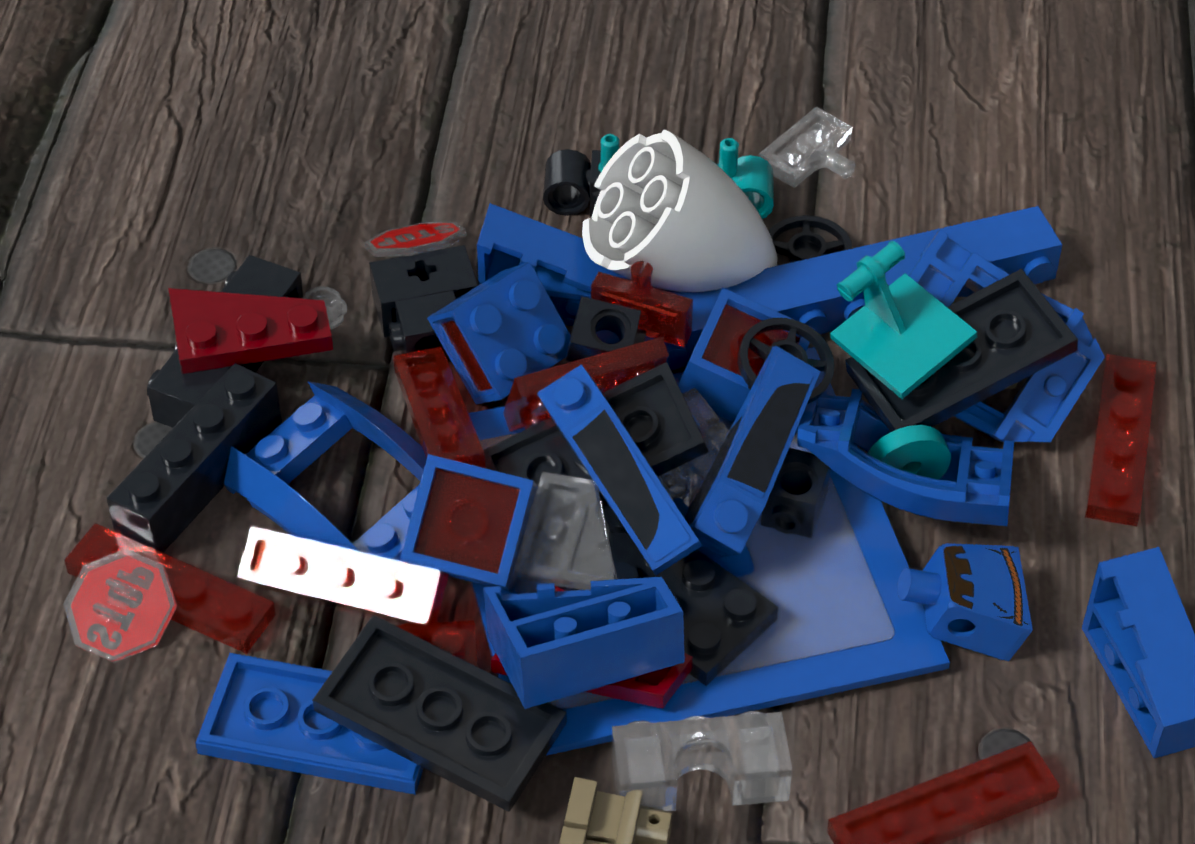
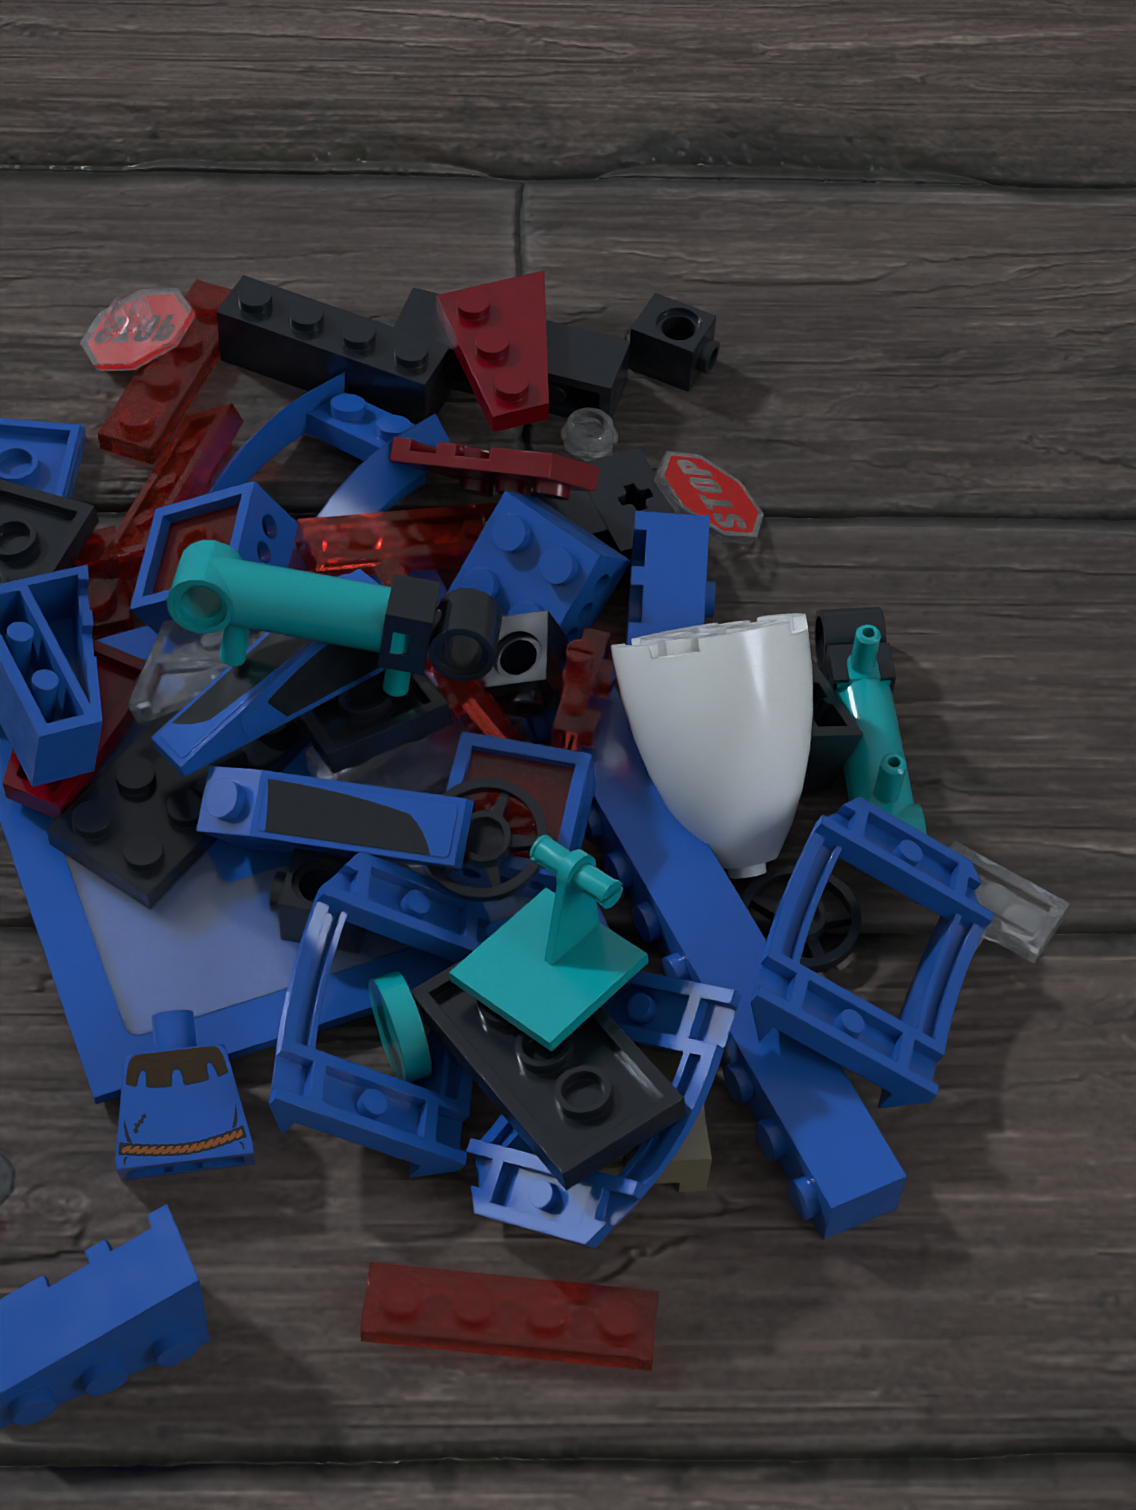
camera: 80 degrees right, 5 degrees up
(234, 237) = (673, 342): none -> black brick
(395, 332) = (499, 468): none -> dark red wing
(627, 353) = (400, 622): none -> teal piece
(919, 201) = (833, 1021): none -> blue wedge

